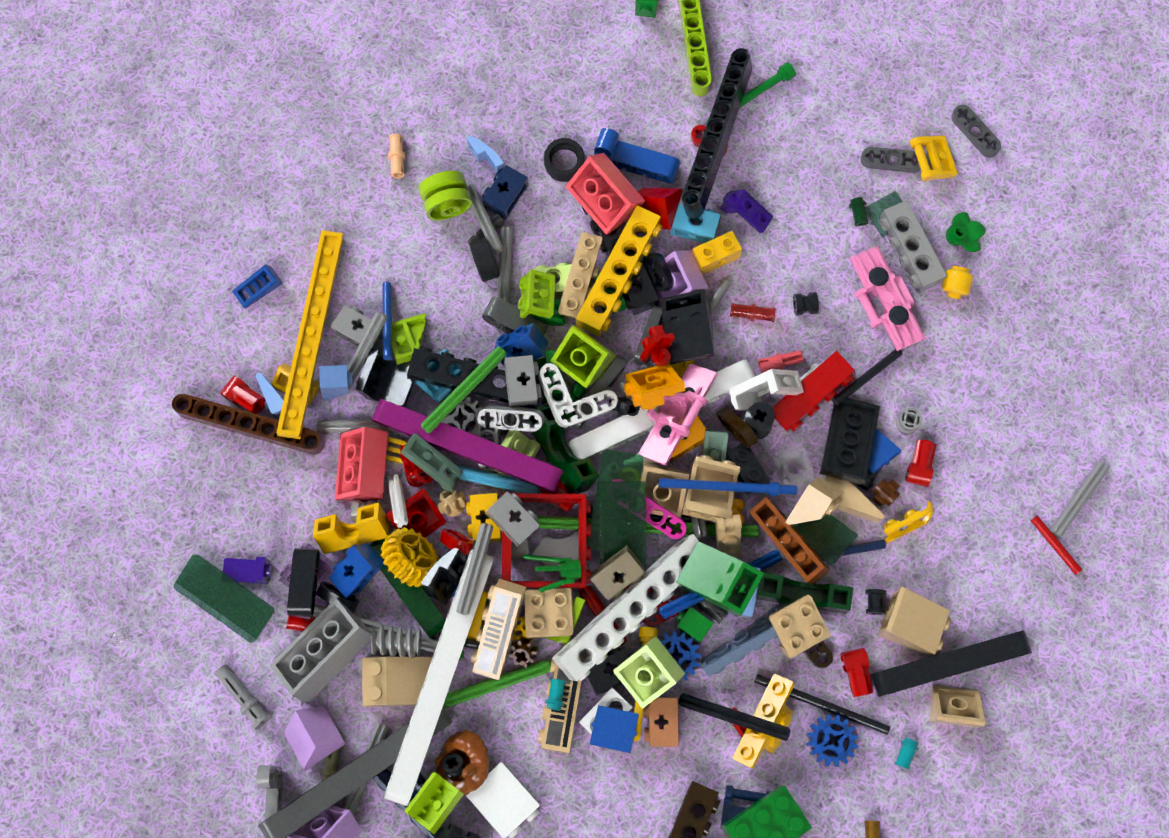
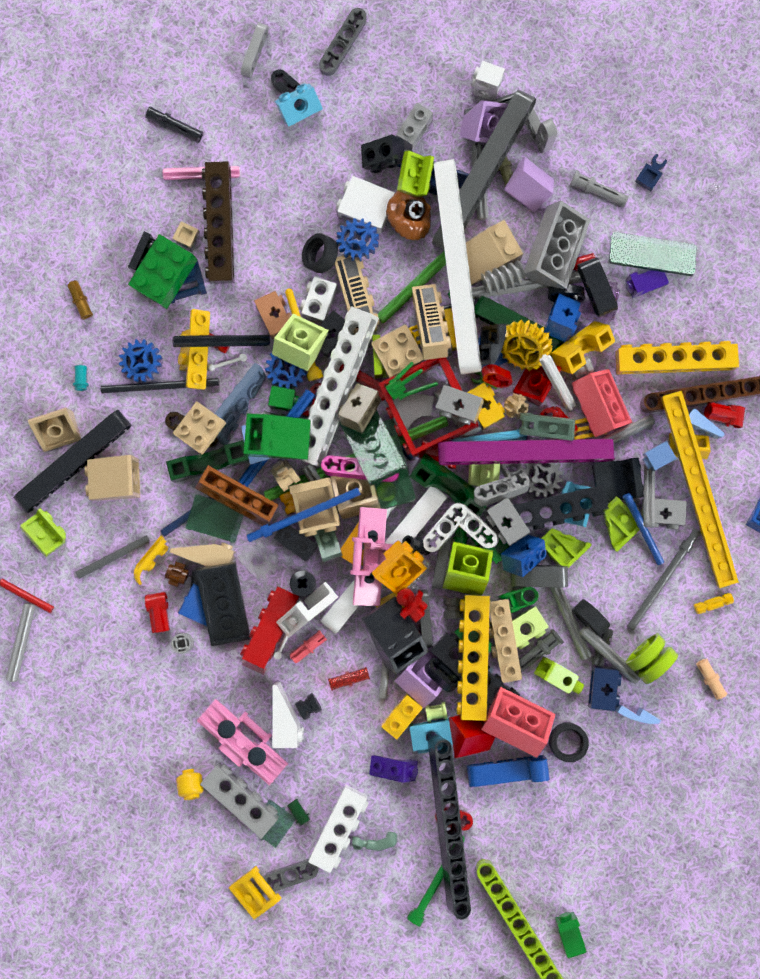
camera: 155 degrees right, 10 degrees up
(179, 686) = (650, 174): none -> dark blue plate
(211, 448) = (727, 360): none -> yellow brick
(354, 287) = (685, 547): none -> dark grey bar
(355, 223) = (714, 603): none -> yellow axle
(463, 390) = (550, 493): bright green axle -> none
(474, 339) = (564, 548): none -> lime wing
(474, 569) = (470, 353): light grey axle -> none
(523, 658) = (403, 316): reddish brown gear -> none
(533, 770) = (354, 247): none -> blue gear
(537, 294) = (531, 604): lime bracket -> none
(544, 222) = (558, 676): none -> lime torso
(545, 255) = (543, 647): none -> dark grey pin
(555, 695) = (363, 294): teal pin -> none
(591, 775) = (310, 251): none -> black tyre
(614, 729) = (307, 289): blue piece -> none
(616, 331) = (453, 608): none -> dark grey wheel
(679, 242) = (436, 712): none -> yellowish green bush
(717, 694) = (211, 367): none -> white hinge
(737, 427) = (318, 569): dark brown beam -> none
(780, 147) = (379, 845): none -> sand green arm
(816, 502) = (226, 532): slope -> none
(837, 288) = (286, 724): none -> white slope
(847, 155) = (320, 856): none -> white brick
(857, 668) = (145, 425): red piece -> none
(867, 376) = (231, 666): black bar -> none
(875, 601) = (150, 482): black bush -> none
(947, 543) = (112, 557): none -> dark grey bar
(968, 232) = (198, 837): green plate -> none
(976, 122) = (230, 946): dark grey beam -> none
(1012, 600) = (44, 532): none -> lime bracket

